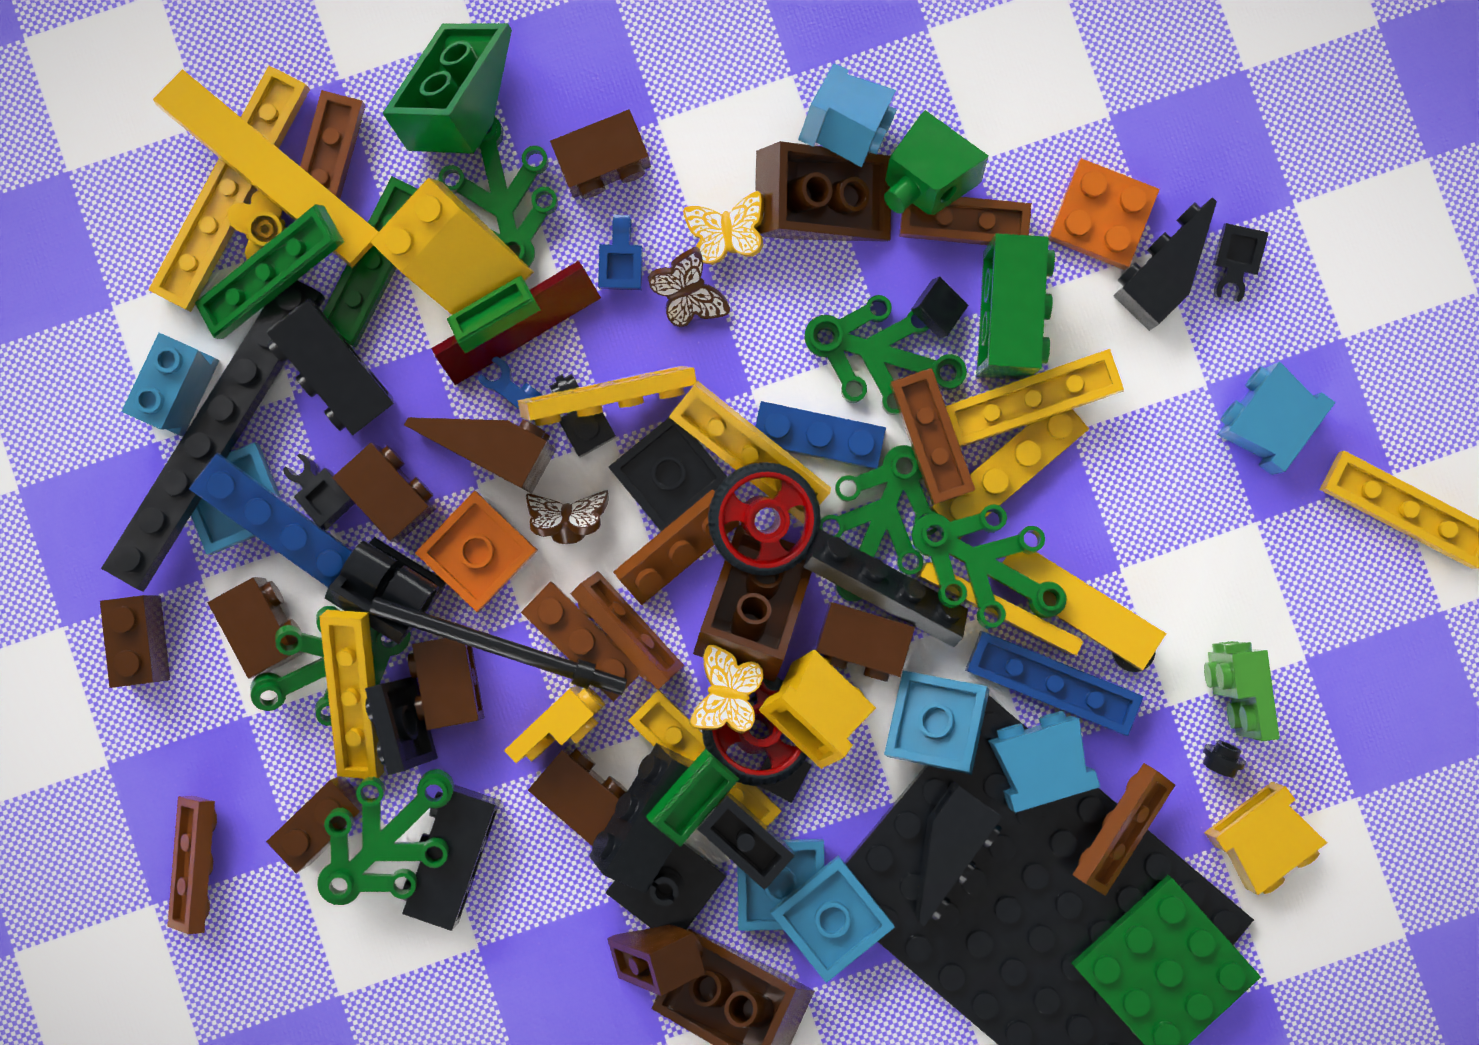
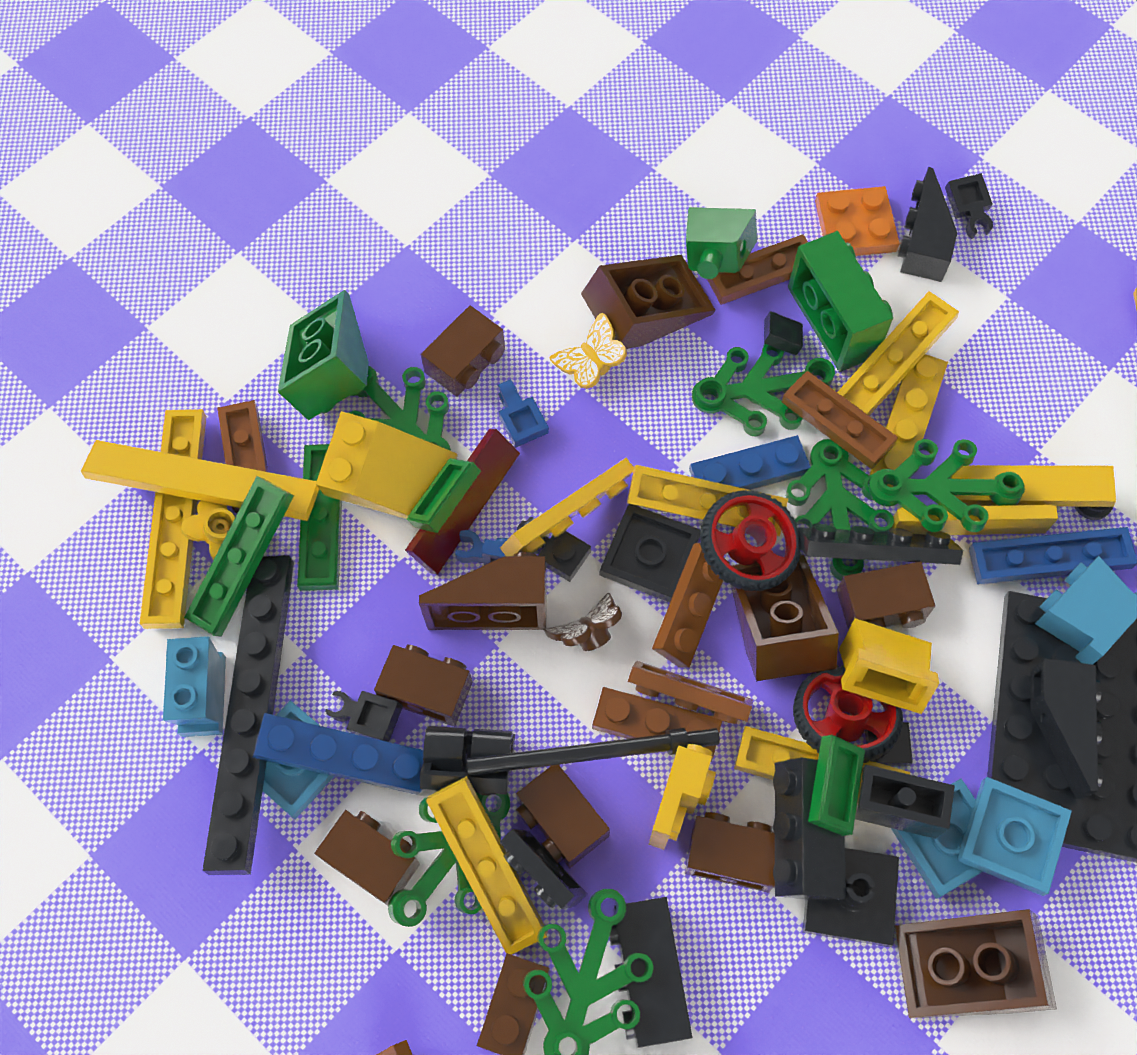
camera: 25 degrees left, 20 degrees down
(134, 640) = (260, 929): reddish brown brick -> none
(329, 367) = (327, 602): black brick -> none
(476, 551) = (527, 694): orange plate -> none
(657, 957) = (887, 960): reddish brown slope -> none
(687, 291) = (585, 410): reddish brown animal -> none
(728, 692) = (808, 686): animal -> none
(849, 115) = (637, 234): dark azure hips -> none
(937, 722) = (987, 629): dark azure plate -> none
(1274, 417) = (1074, 288): dark azure hips -> none

